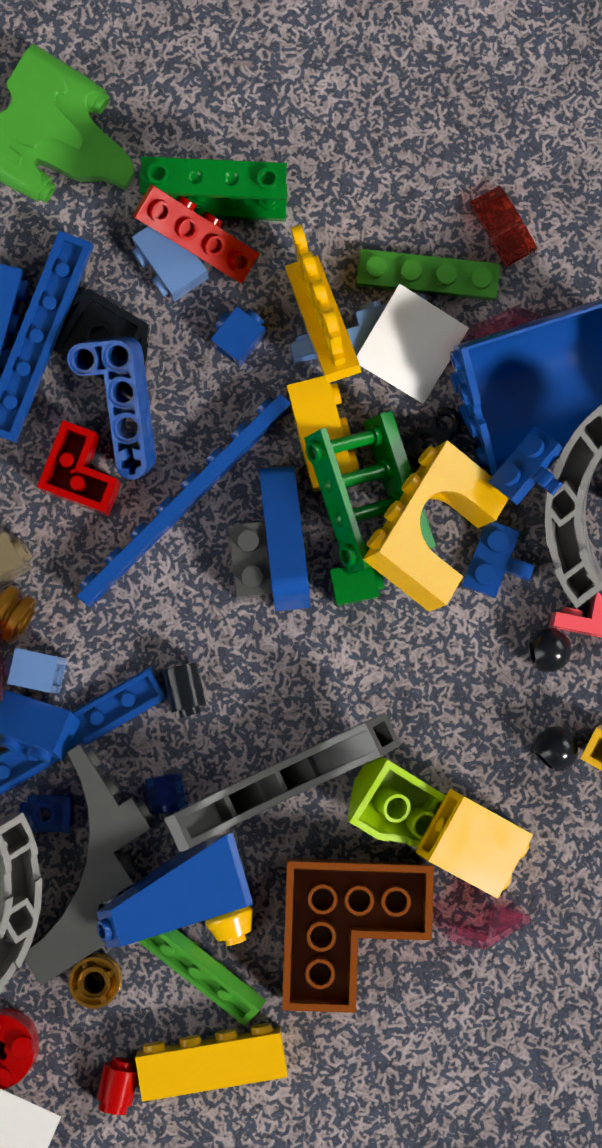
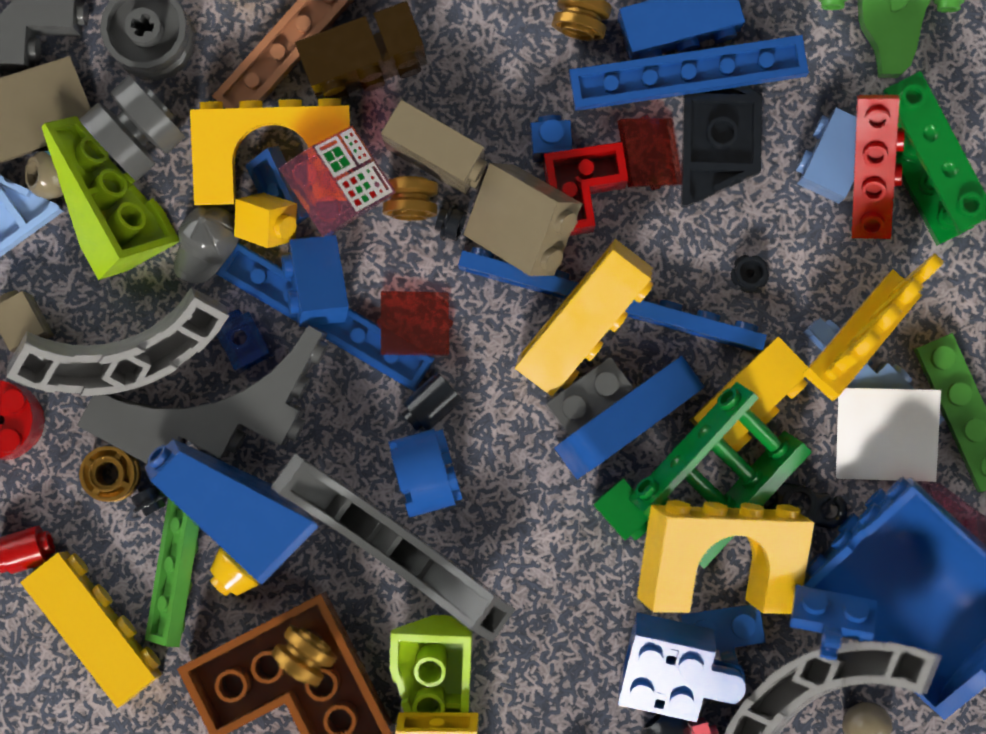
camera: 70 degrees right, 0 degrees up
(25, 474) = (550, 136): none -> blue brick
(35, 670) = (369, 251): medium blue brick -> none
(49, 592) = (450, 222): none -> black plate
(79, 402) = (650, 152): none -> clear red piece
(79, 533) = (522, 219): none -> dark tan brick
(113, 666) = (414, 323): none -> clear red piece
(118, 405) = (666, 187): blue beam -> none
(134, 960) = (149, 500): none -> black plate
(167, 793) = (323, 441): clear blue brick -> none
(186, 528) = (584, 318): none -> yellow brick
(224, 388) = (760, 273): none -> black plate
(237, 726) = (422, 472): none -> blue brick
(238, 334) = (800, 262): blue brick -> none
(328, 900) = (303, 655): none -> pearl gold wheel
(501, 614) = (674, 668): none -> brick

